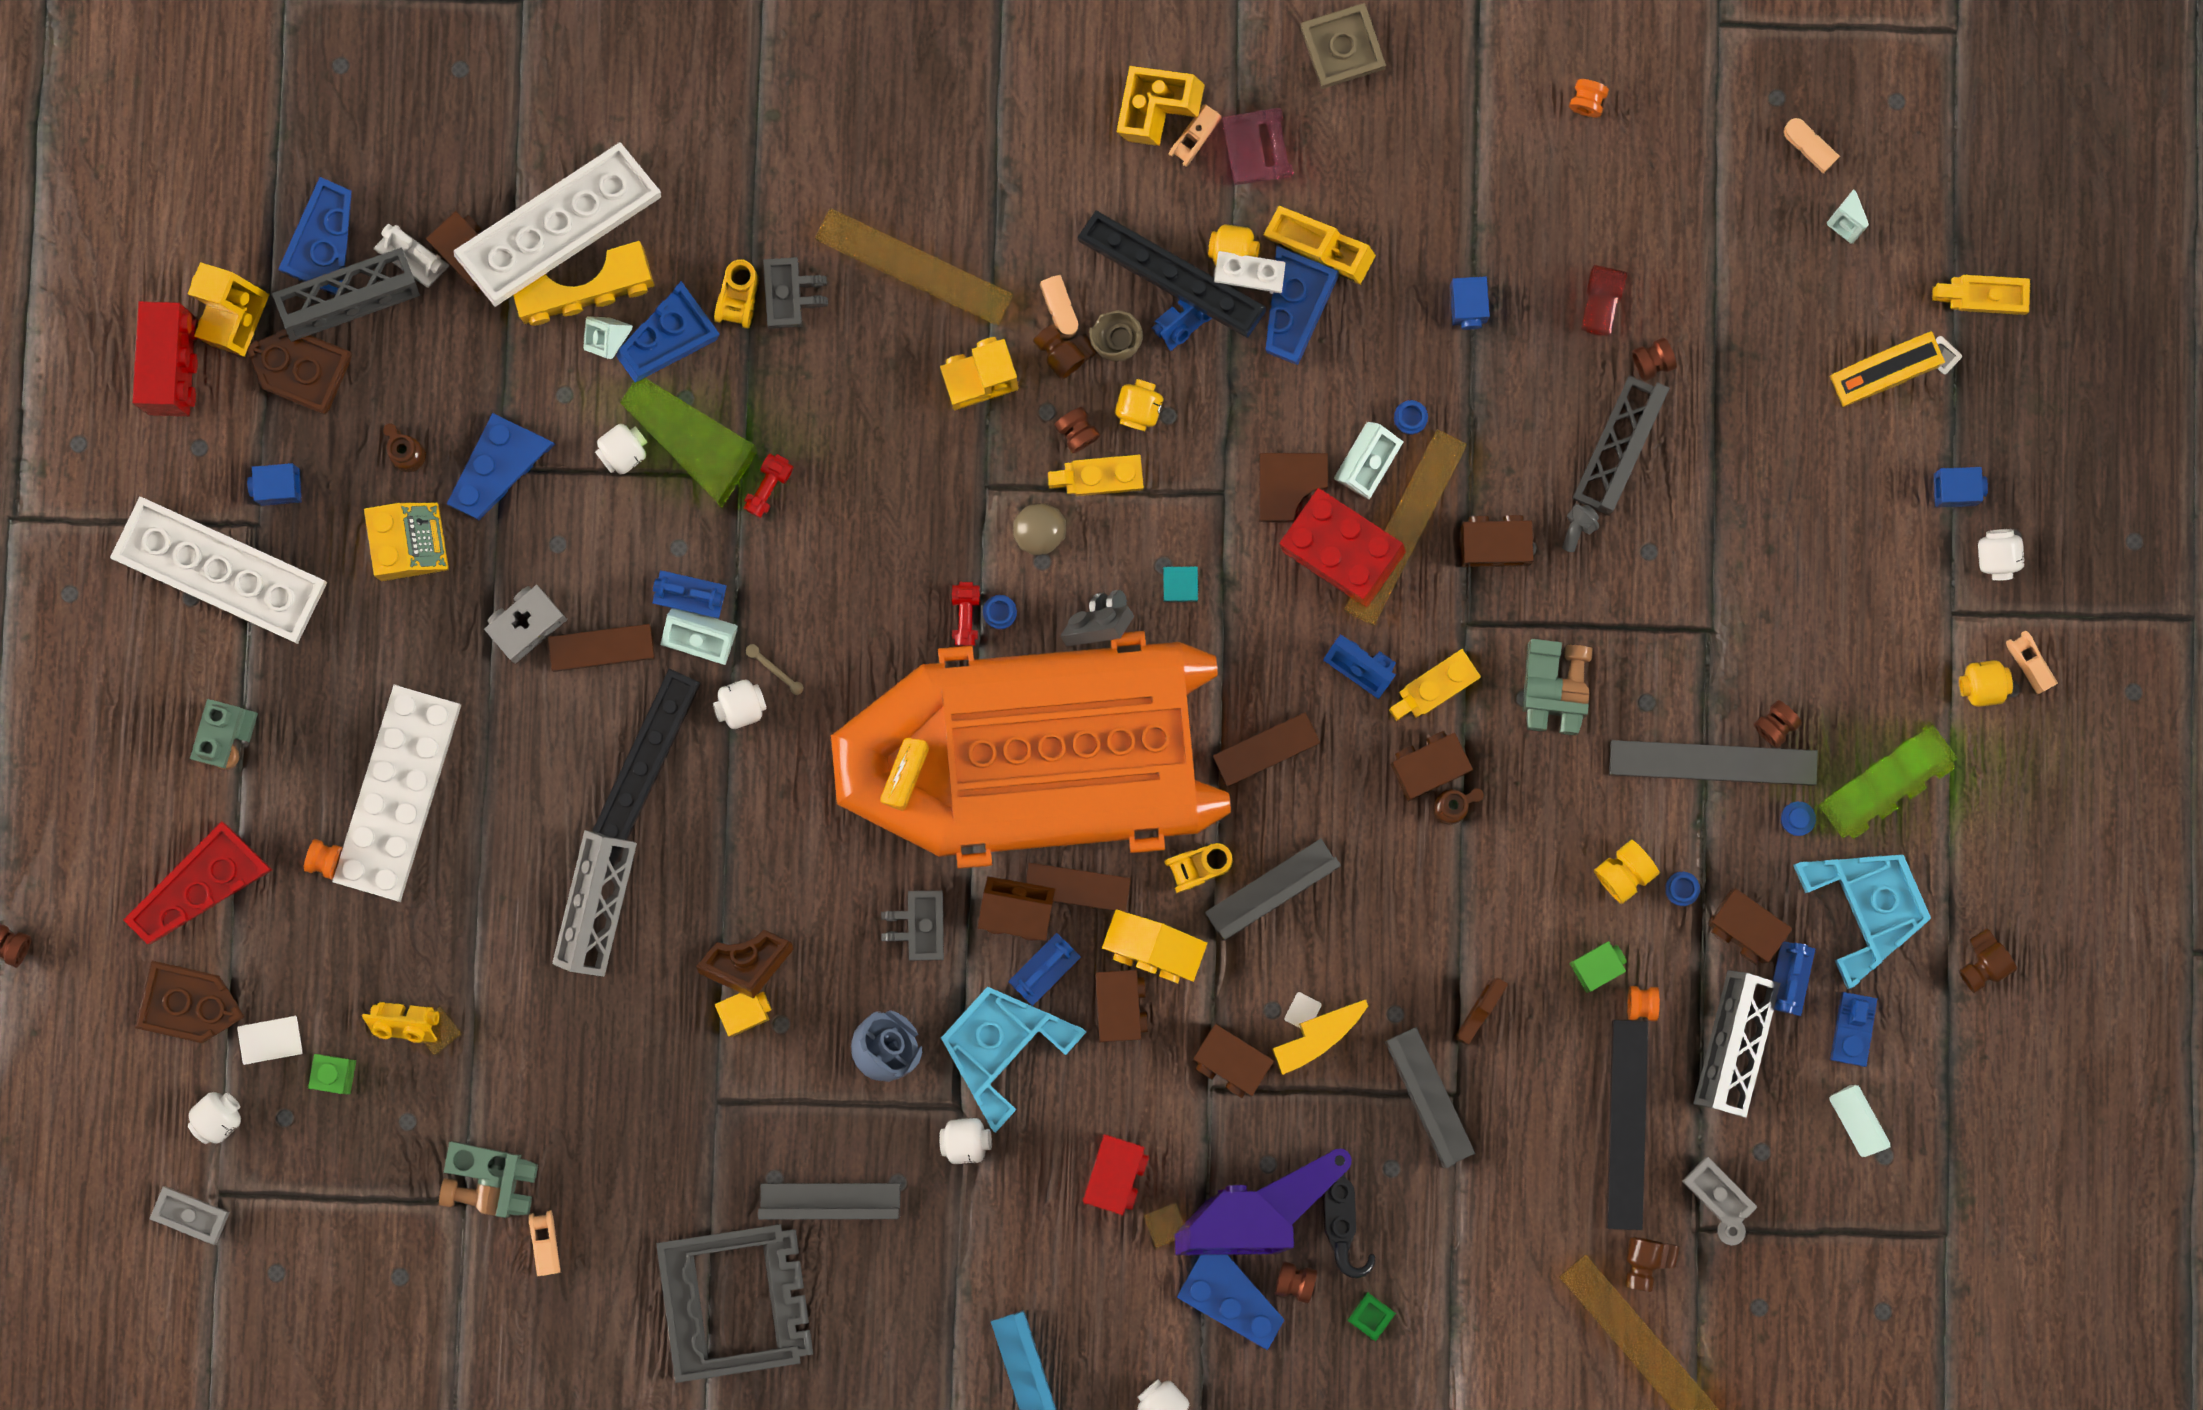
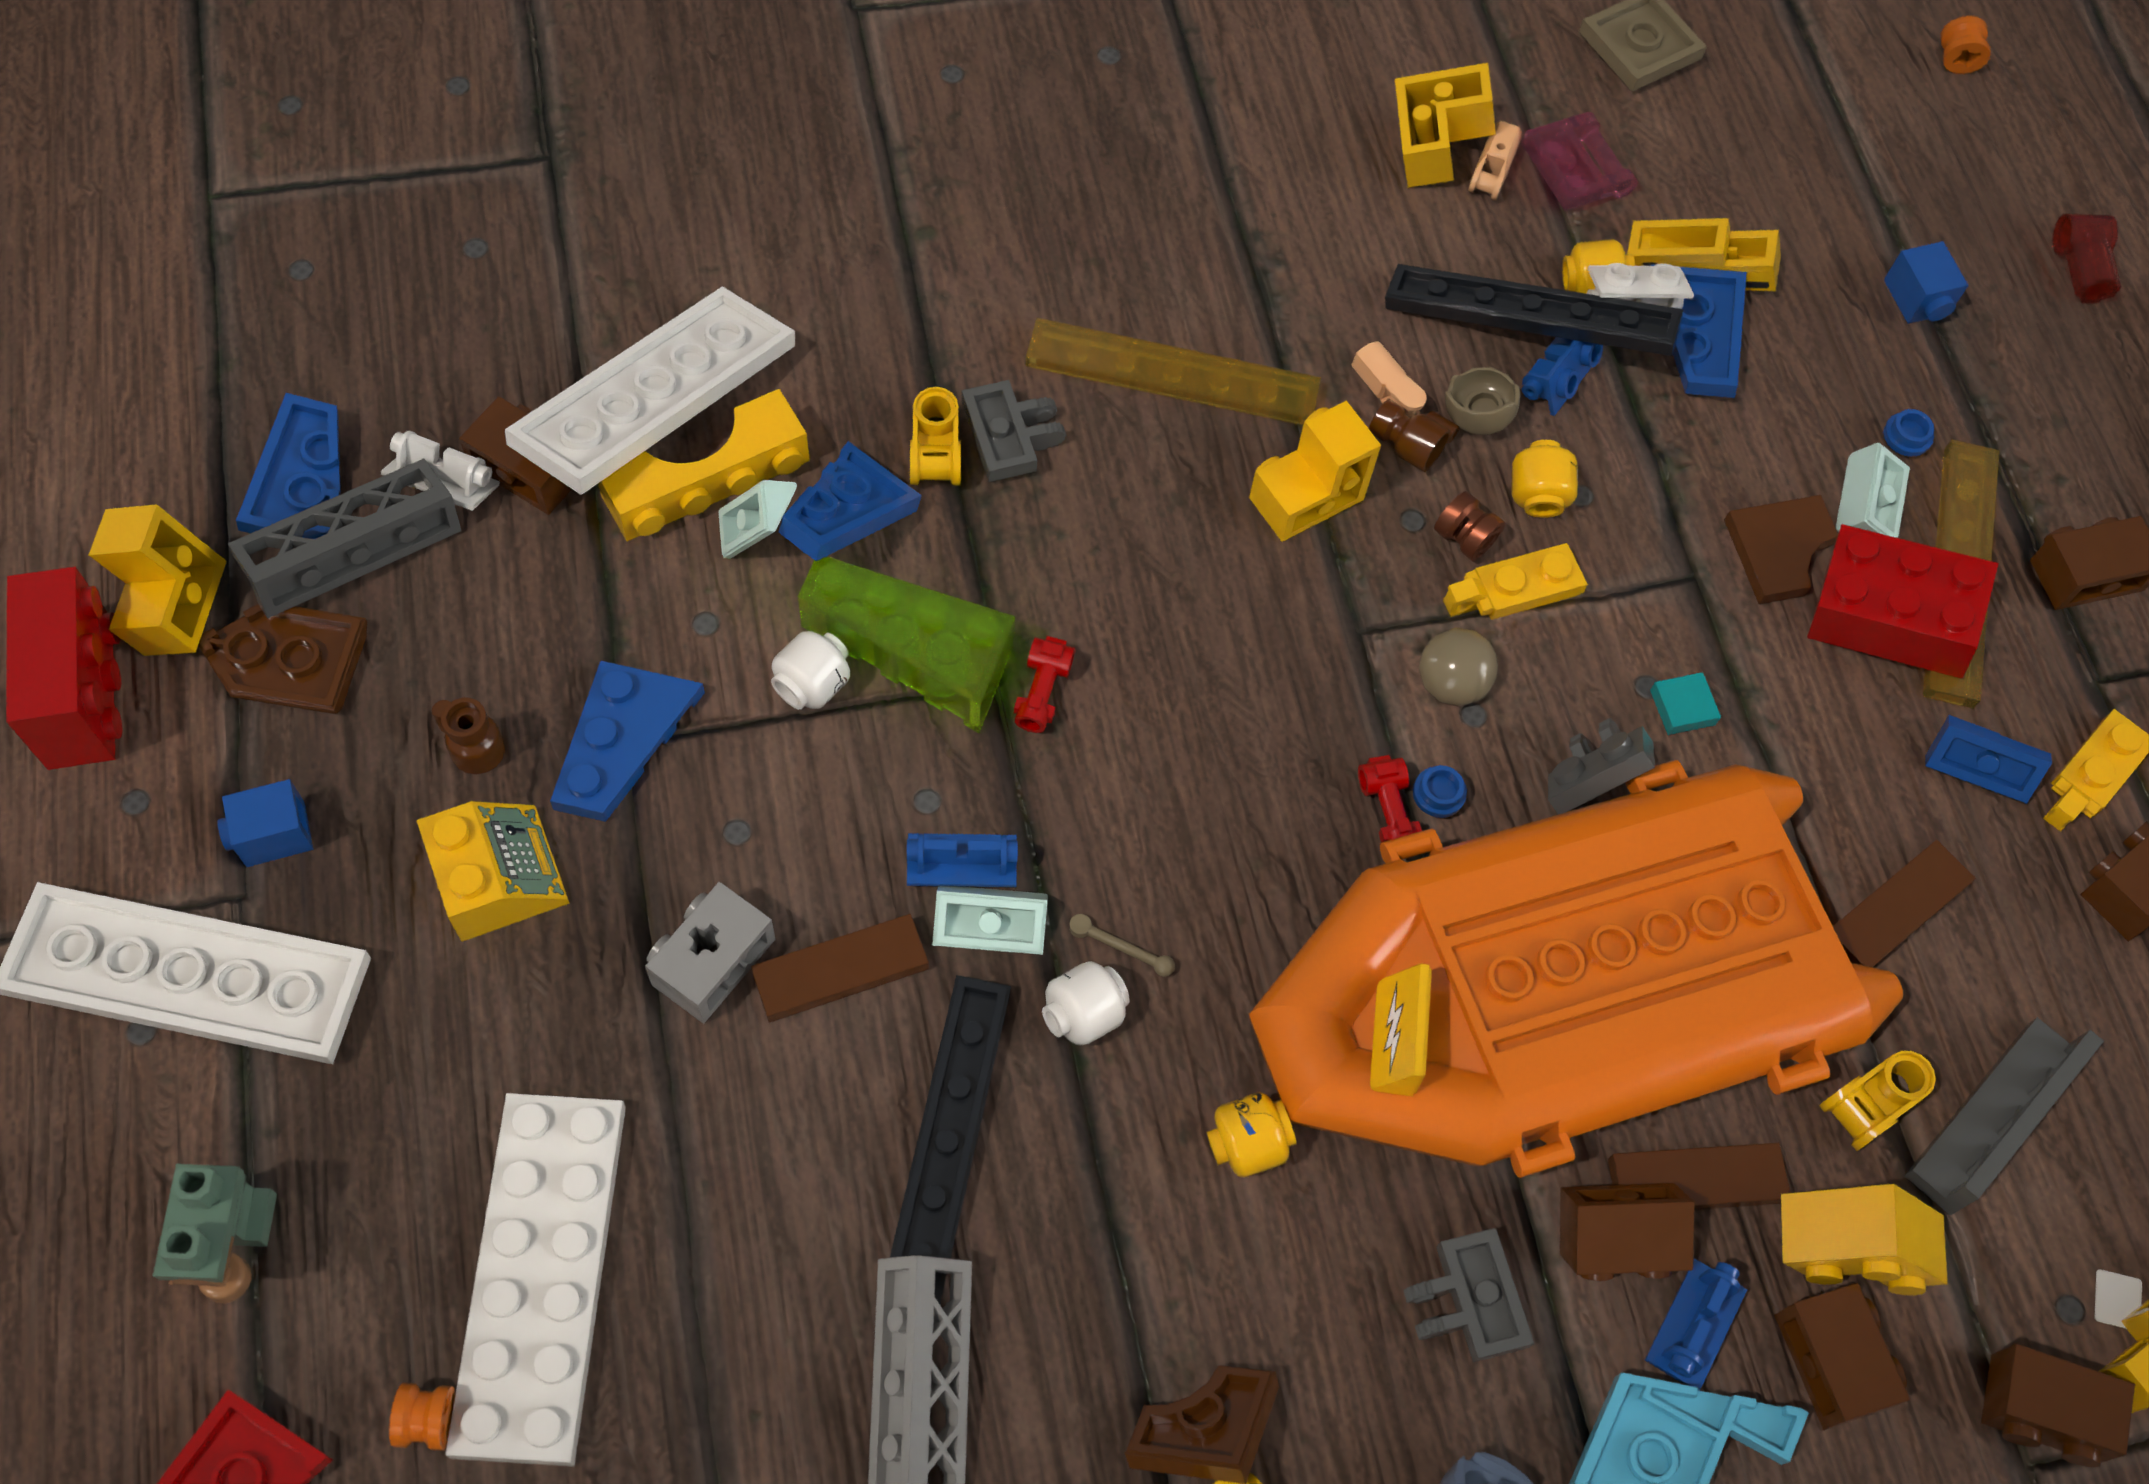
camera: 20 degrees left, 20 degrees down
(815, 805) = (1251, 1134): none -> yellow head

